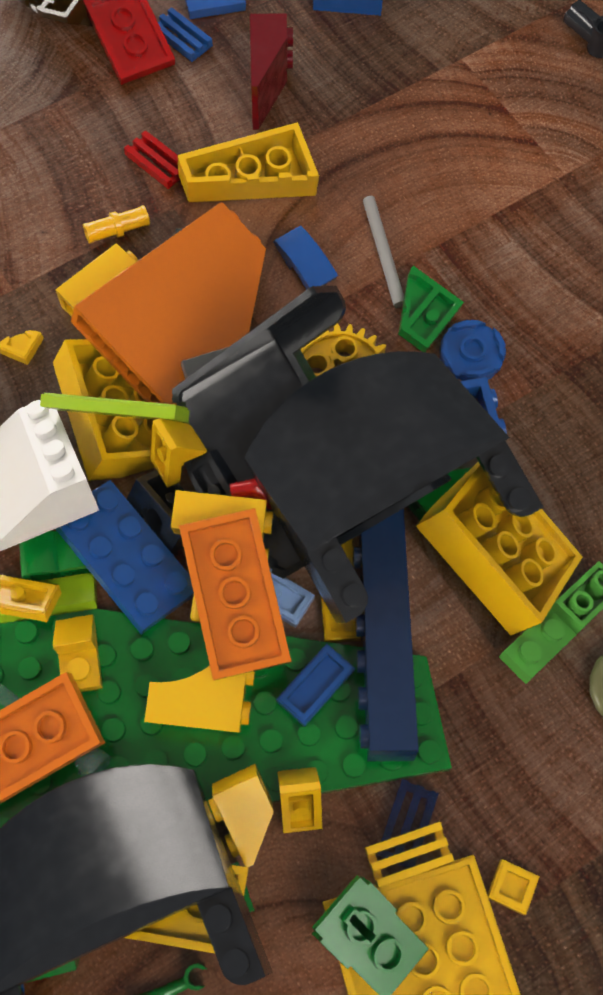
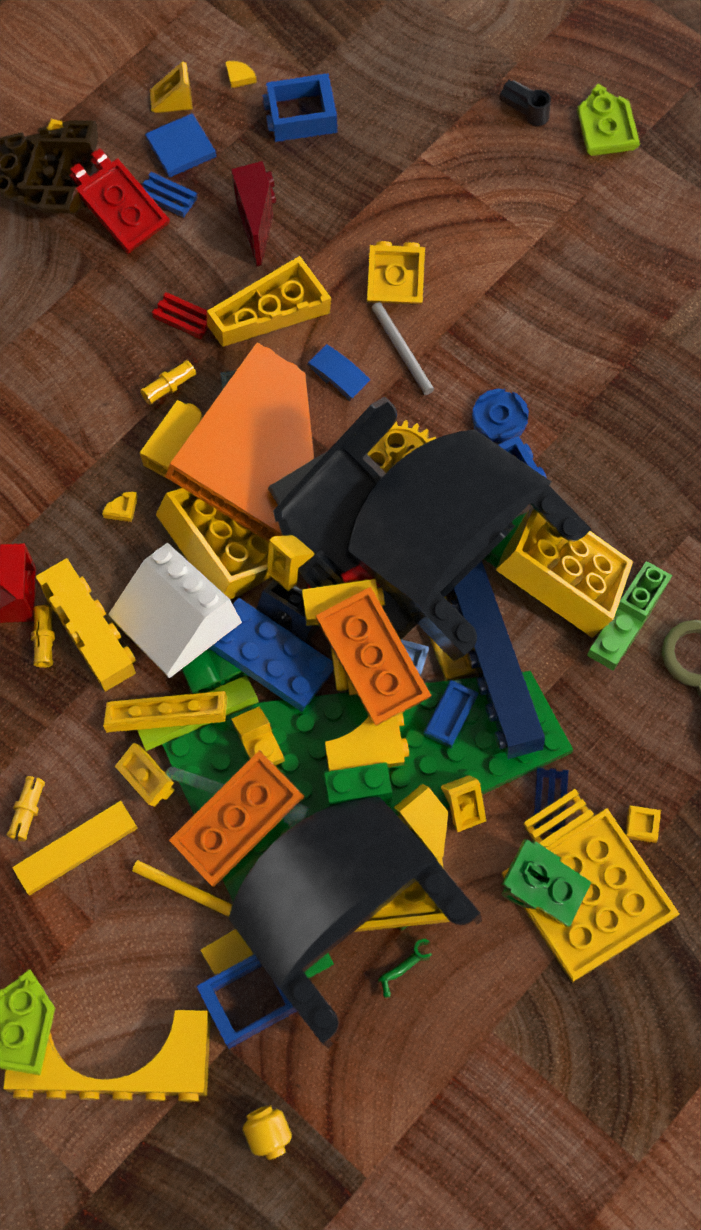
camera: 10 degrees left, 0 degrees up
(114, 407) = (230, 537): lime tile -> none
(175, 746) = (358, 783): none -> green brick
(399, 169) = (396, 273): none -> yellow plate
(426, 310) = (452, 390): green wing -> none

